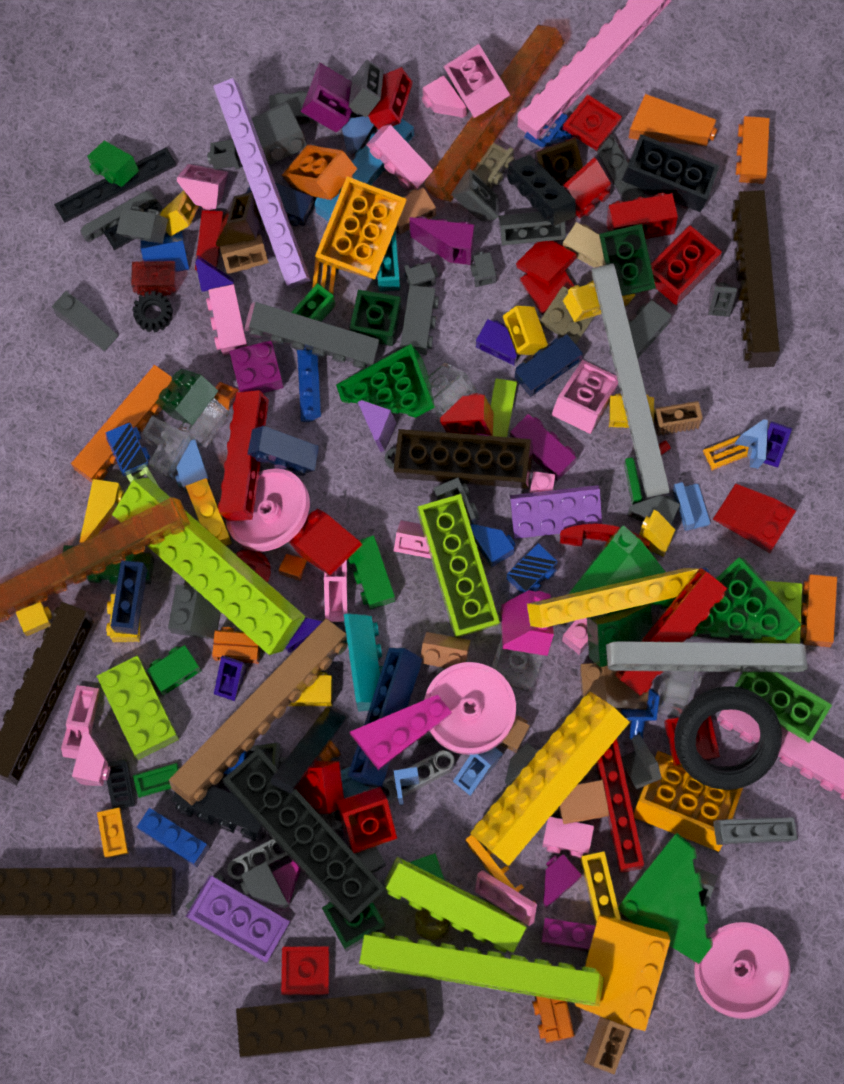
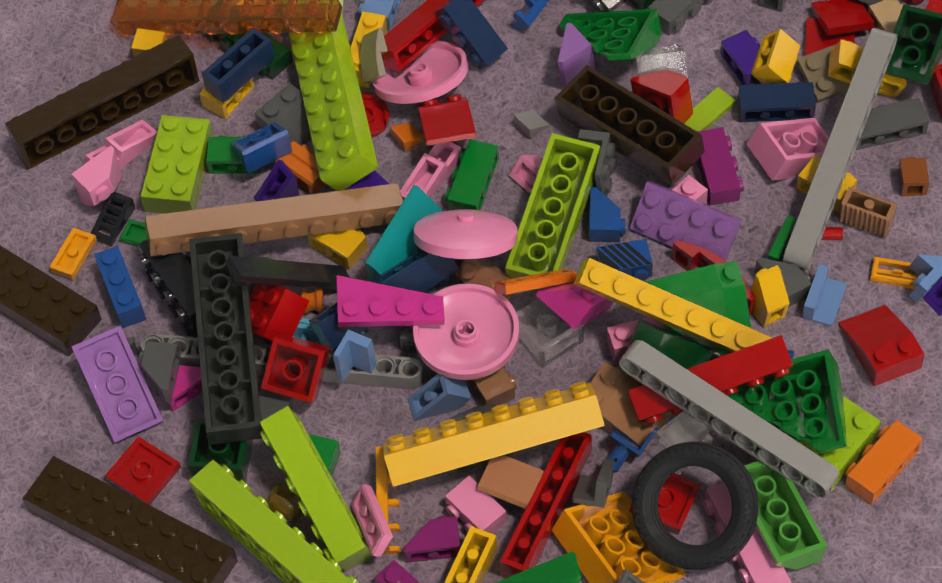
camera: 35 degrees right, 15 degrees down
(196, 652) = (262, 146): none -> blue slope
(223, 518) = (371, 52): none -> dark tan slope
(378, 496) = (530, 123): none -> light grey slope
(412, 630) = (465, 234): none -> bright pink dish
(493, 636) = (535, 281): none -> orange tile
(687, 366) = (913, 176): none -> dark orange brick

